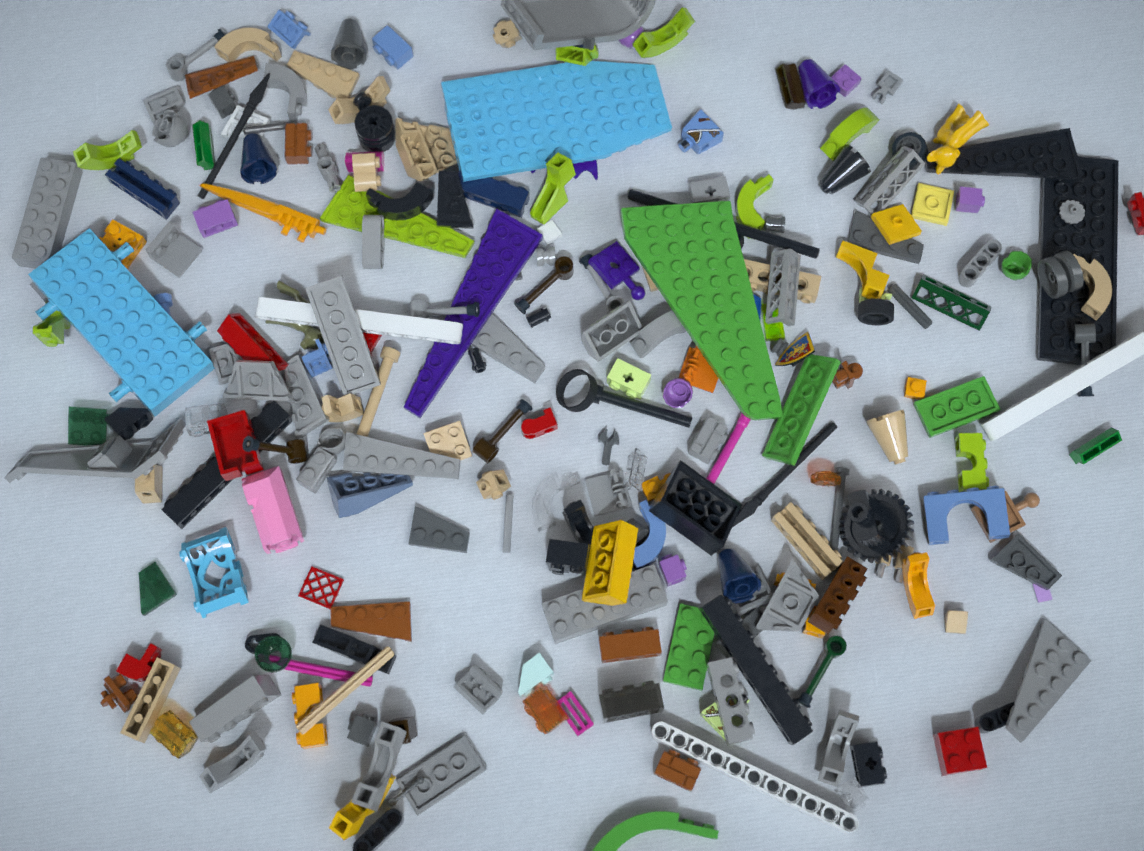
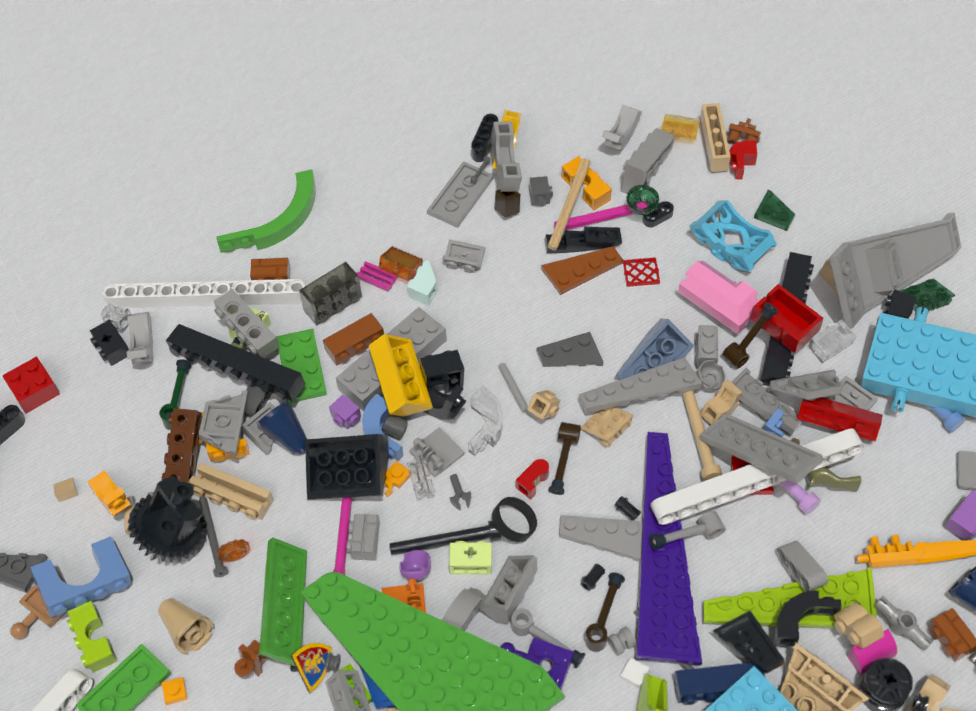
camera: 155 degrees right, 15 degrees down
(750, 507) = (290, 515): black piece -> none

